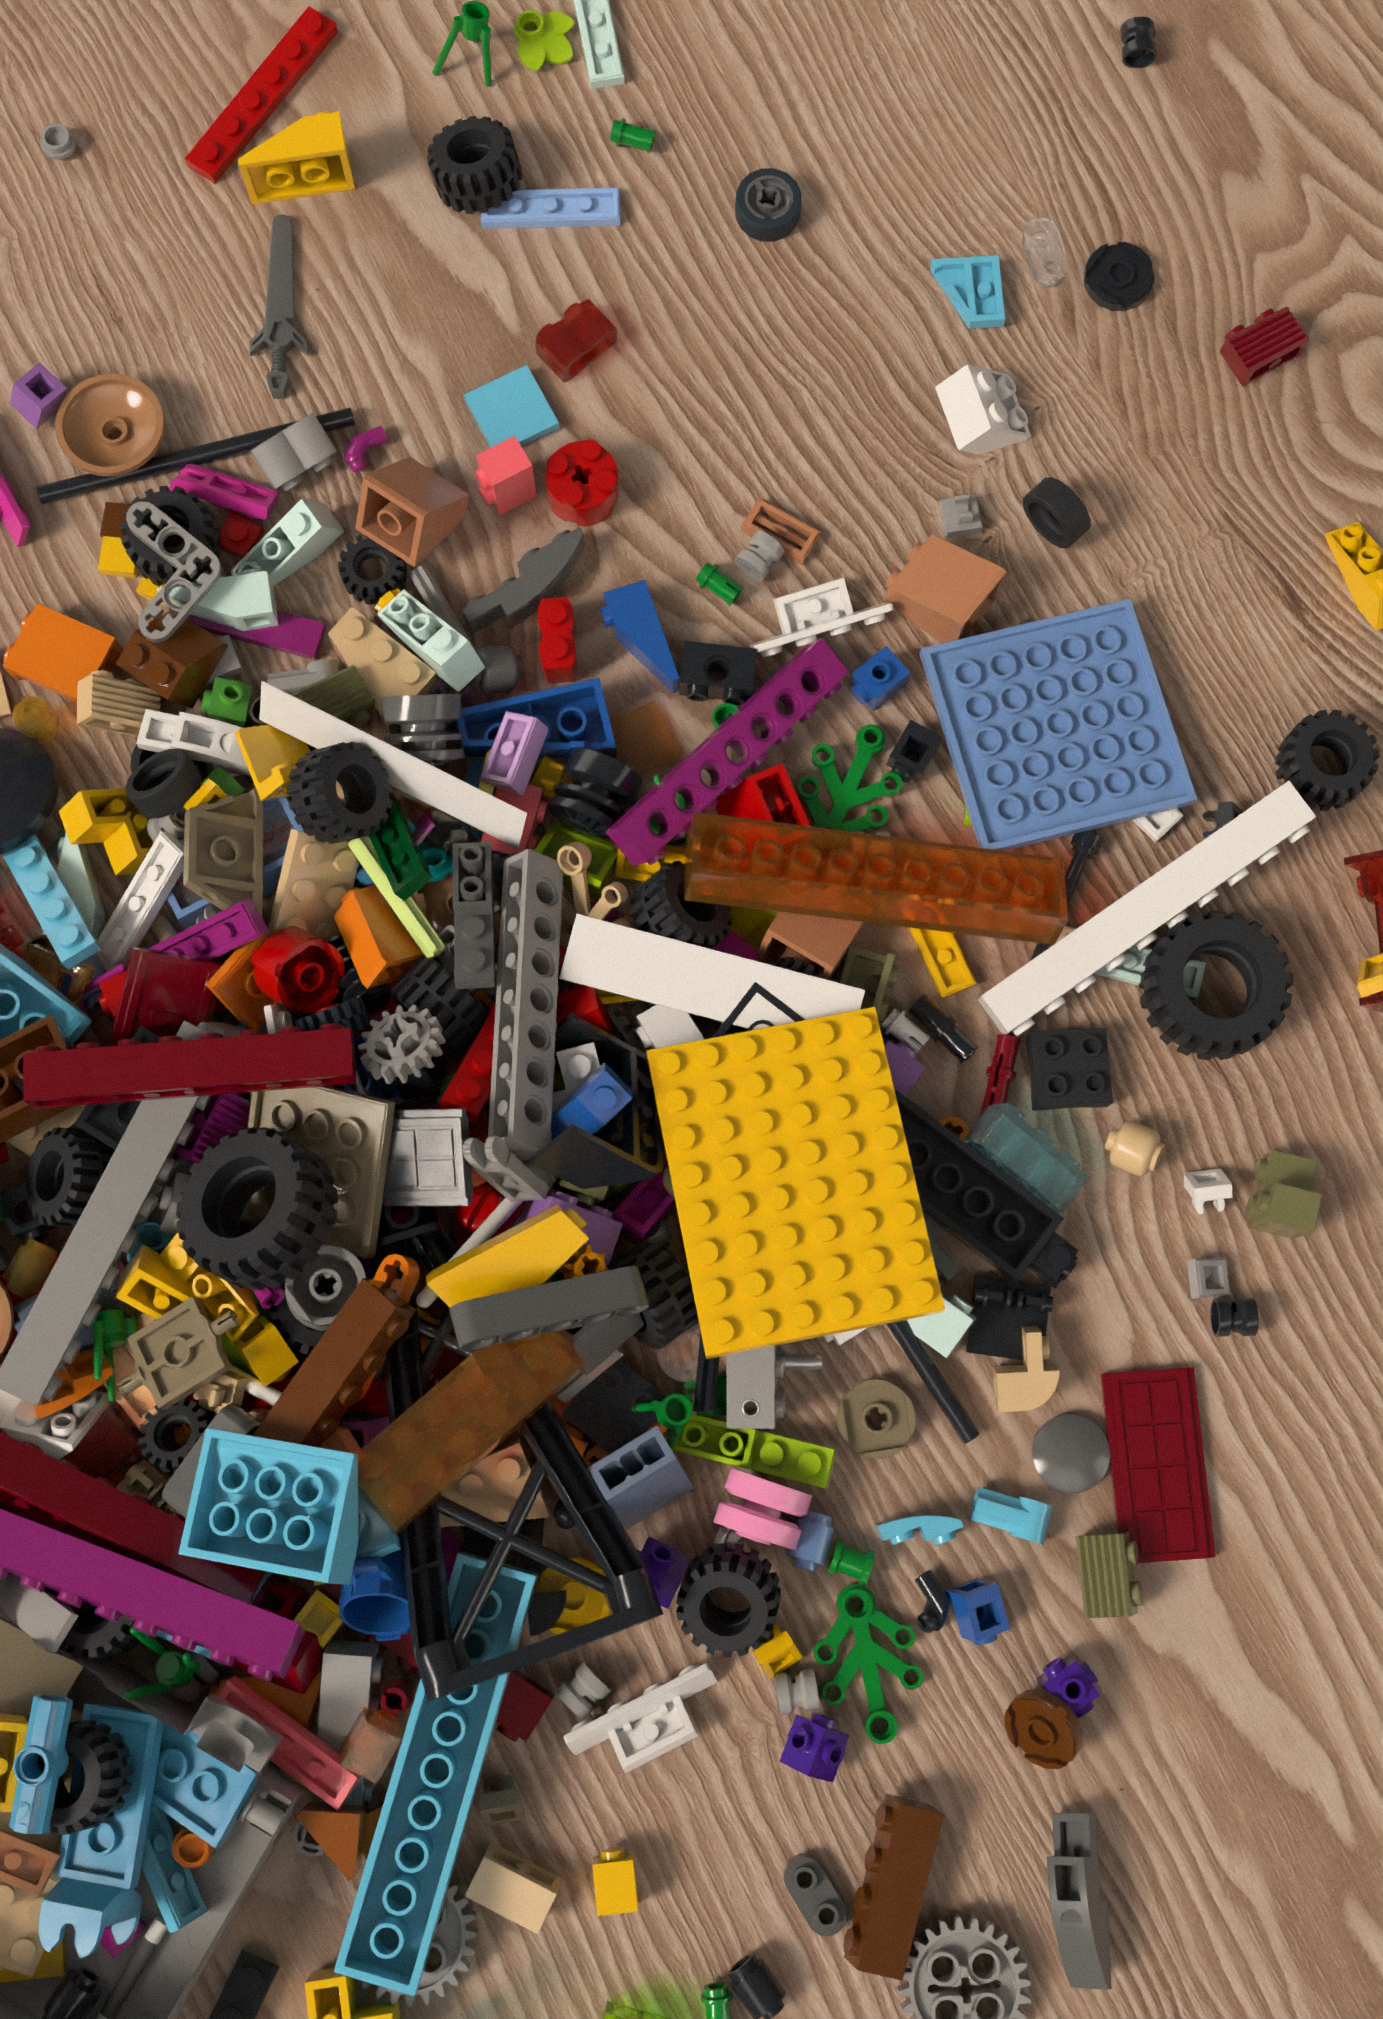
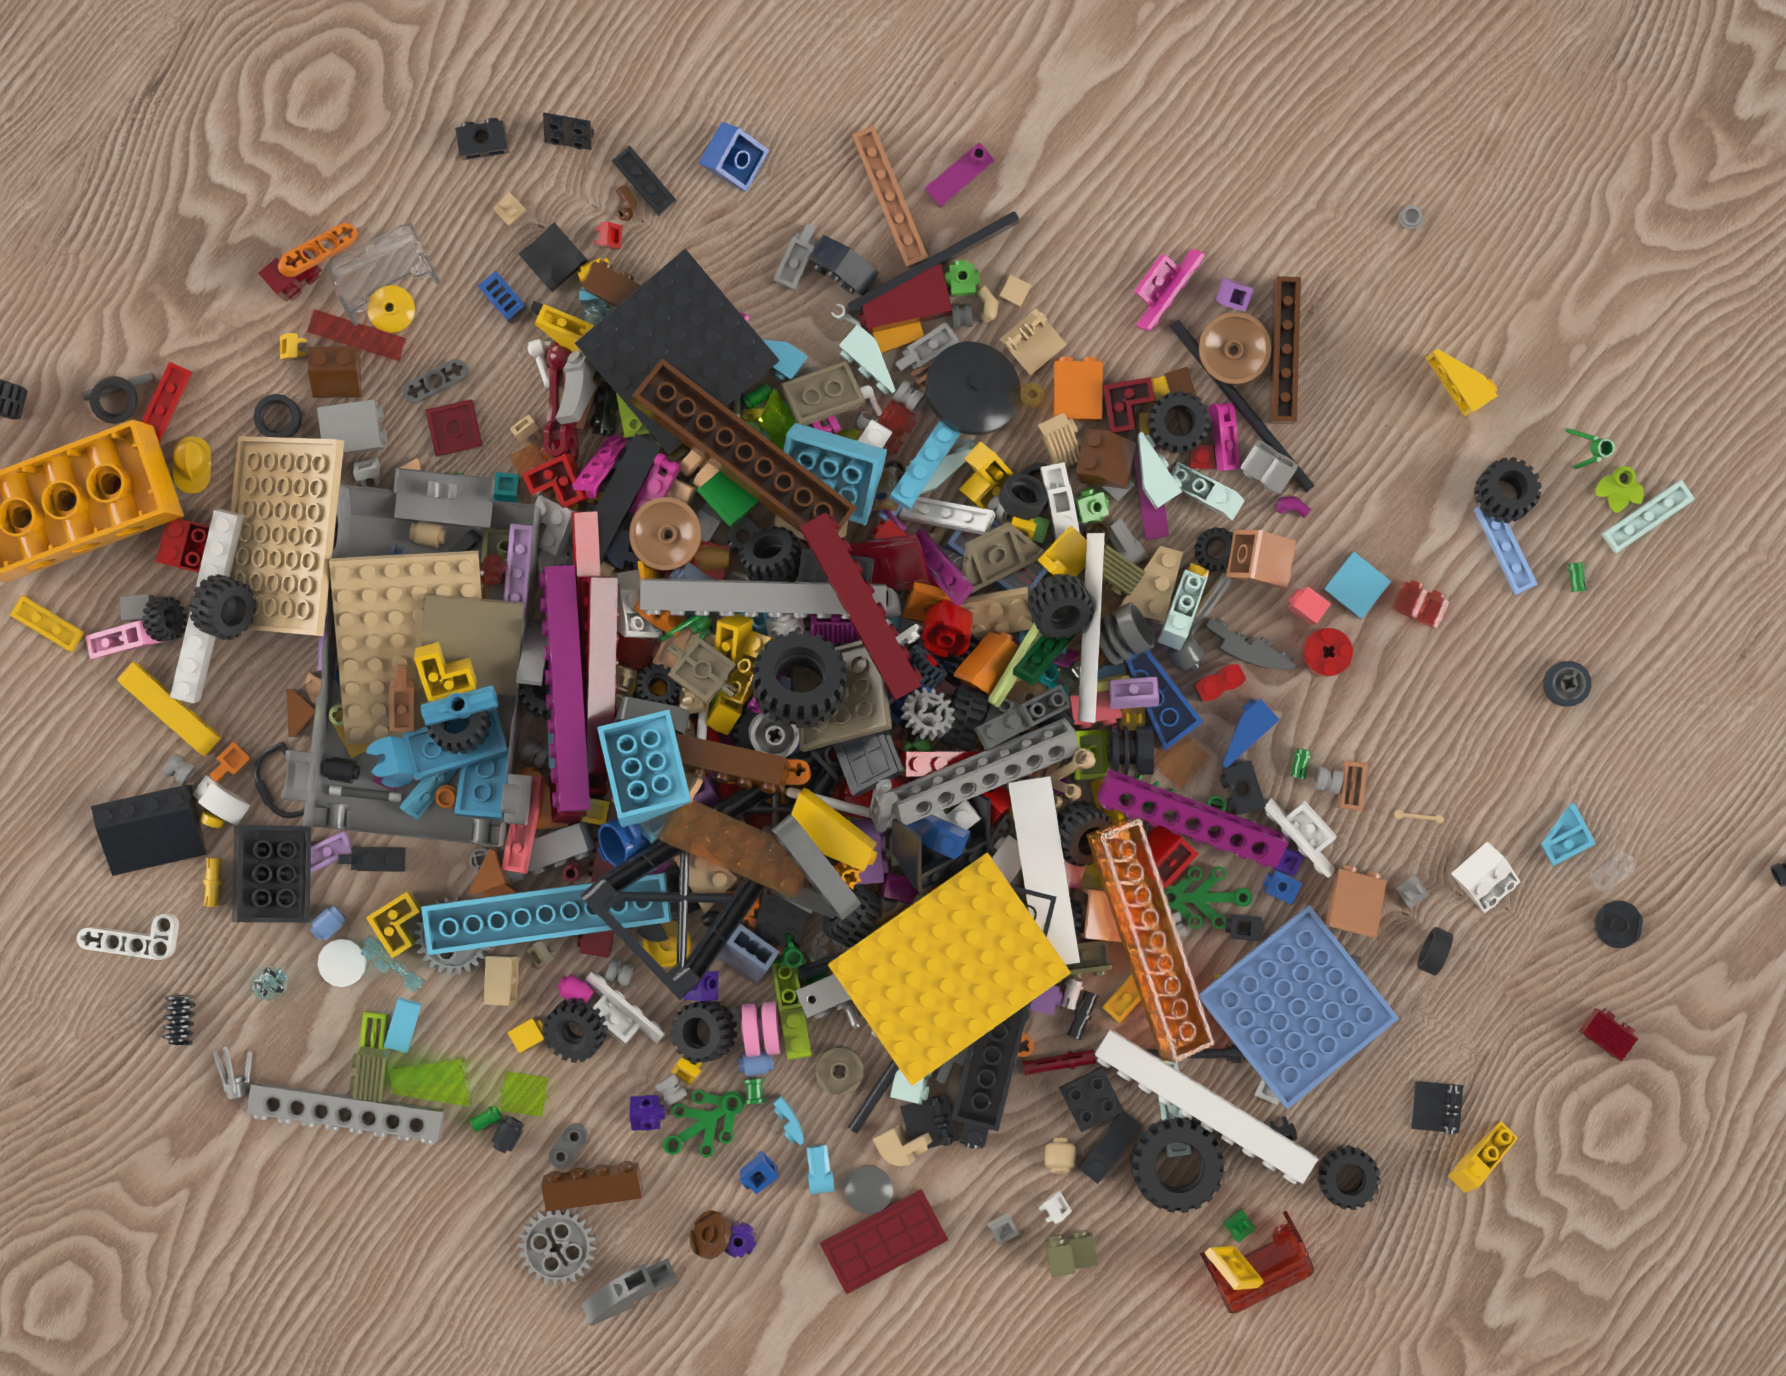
camera: 65 degrees right, 10 degrees up
(100, 590) = (1123, 397): none -> dark red brick
(151, 362) = (1285, 350): none -> reddish brown brick
(171, 1669) = (534, 742): green plant -> none
(182, 561) = (1162, 443): light grey beam -> none
(261, 95) = (1502, 328): red plate -> none
(279, 327) = (1356, 412): dark grey sword -> none
(370, 1744) = (543, 871): clear orange brick -> none
(580, 1775) = (574, 988): none -> dark pink brick
(643, 1828) = (567, 1042): none -> black tyre
(705, 1930) = (524, 1094): none -> clear neon green piece
(847, 488) = (1398, 814): none -> tan hinge
(850, 654) = (1289, 862): none -> dark purple tile
(936, 1605) = (751, 1148): black arm -> none
(1026, 1155) = (1026, 1095): clear light blue brick -> none
(1108, 1575) = (809, 1237): olive brick -> none
(1150, 1074) = (1109, 1147): none -> black slope
(1234, 1317) = (987, 1252): black wheel -> none
(1273, 606) = (1437, 1107): none -> black hinge
(1334, 941) = (1239, 1225): none -> green tile

